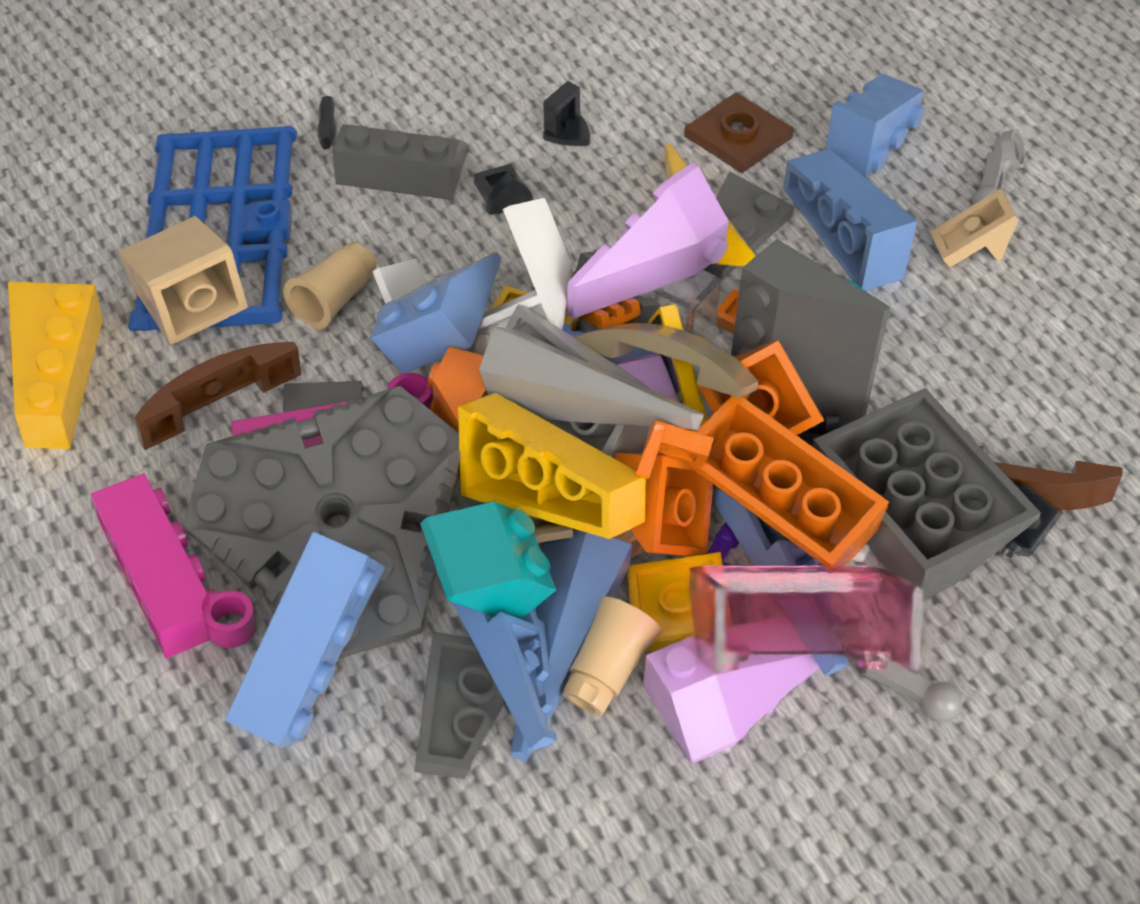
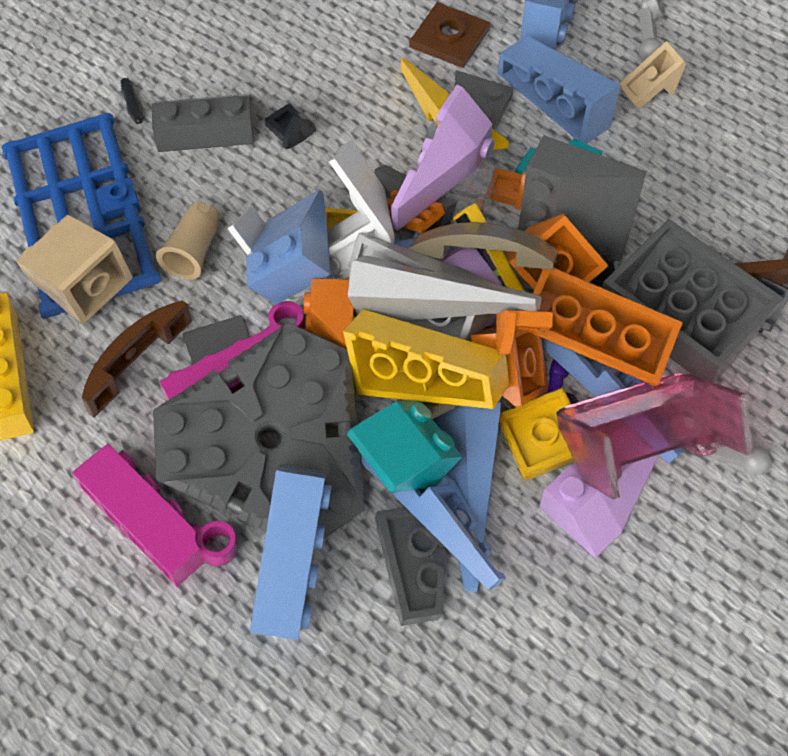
camera: 15 degrees left, 10 degrees up
(563, 119) = (316, 57): black tile -> none
(609, 654) = (512, 494): tan plant -> none

